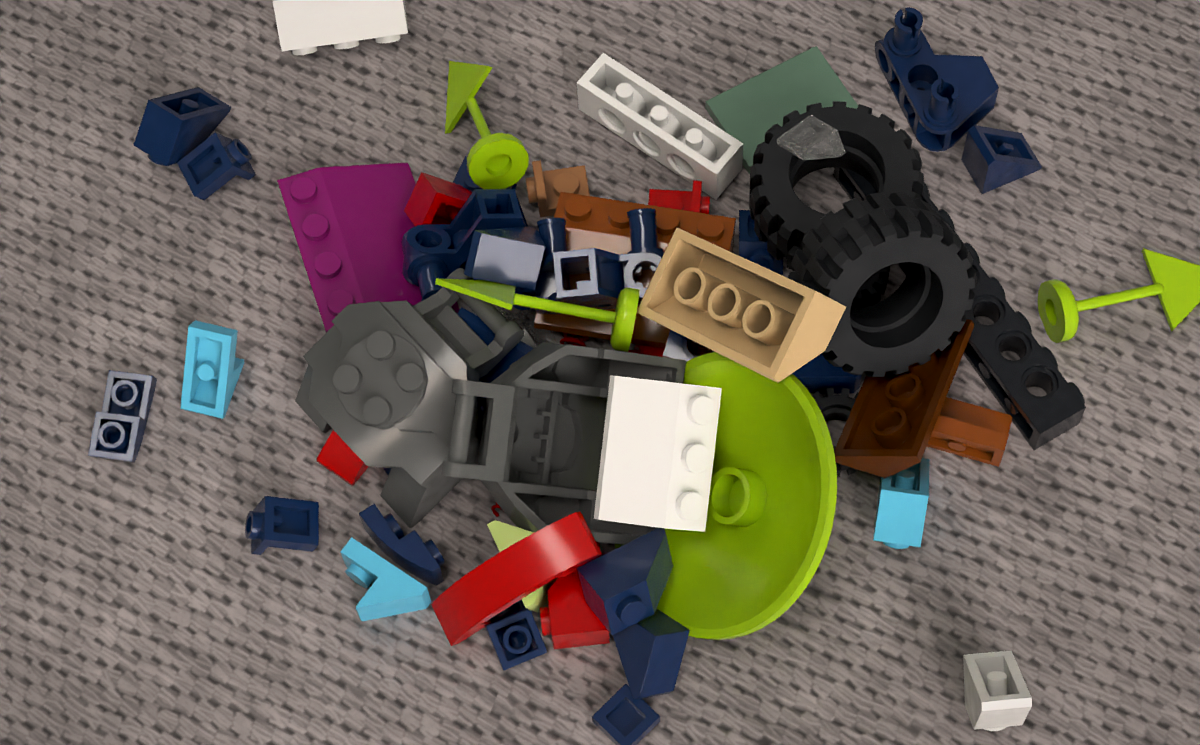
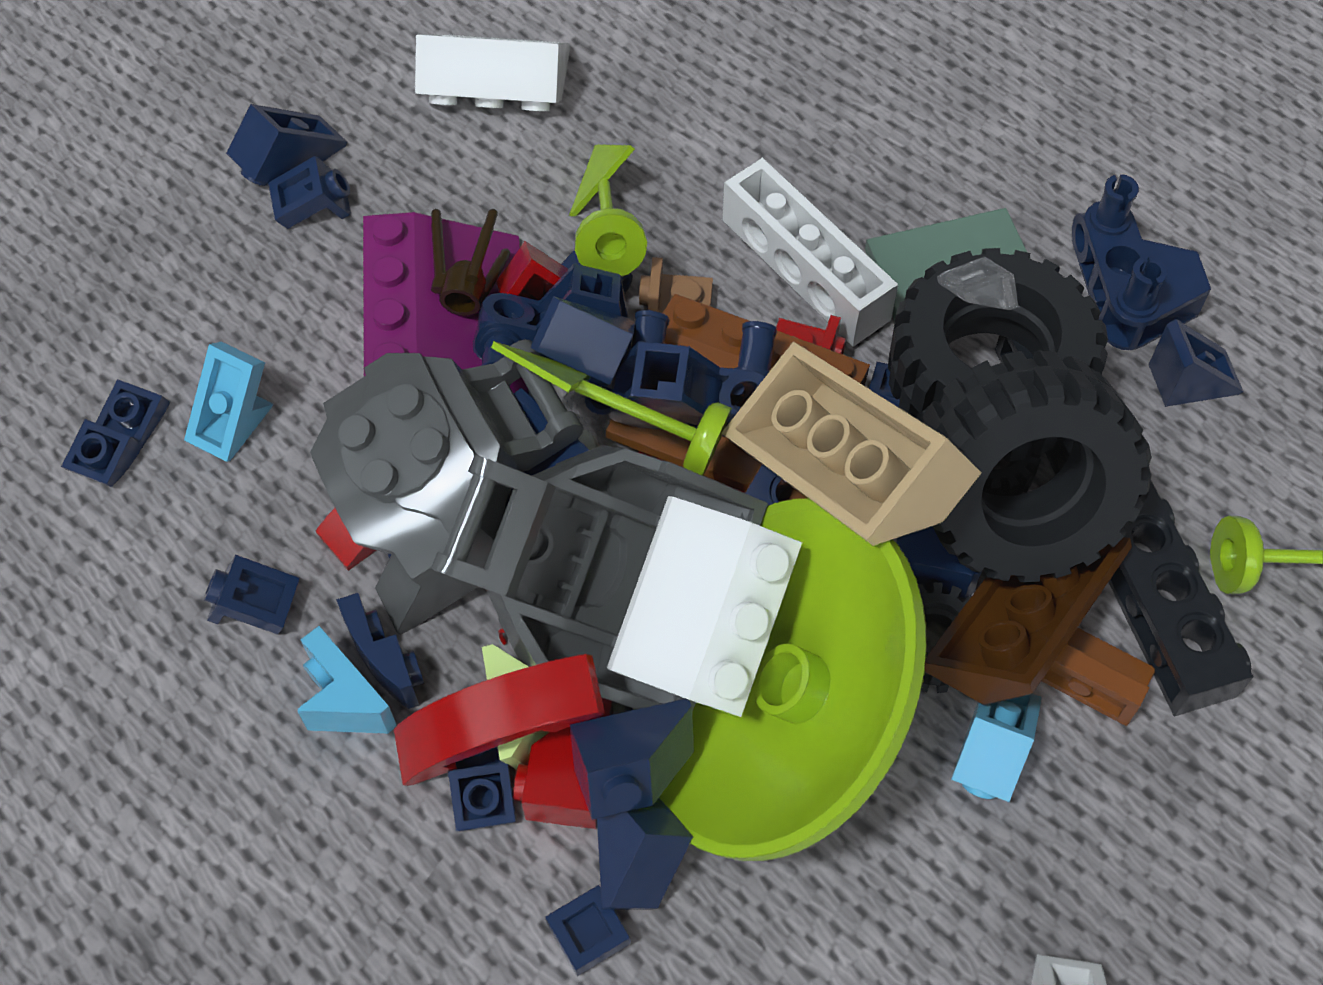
camera: 10 degrees right, 5 degrees down
(384, 221) = (464, 285): none -> dark brown plant

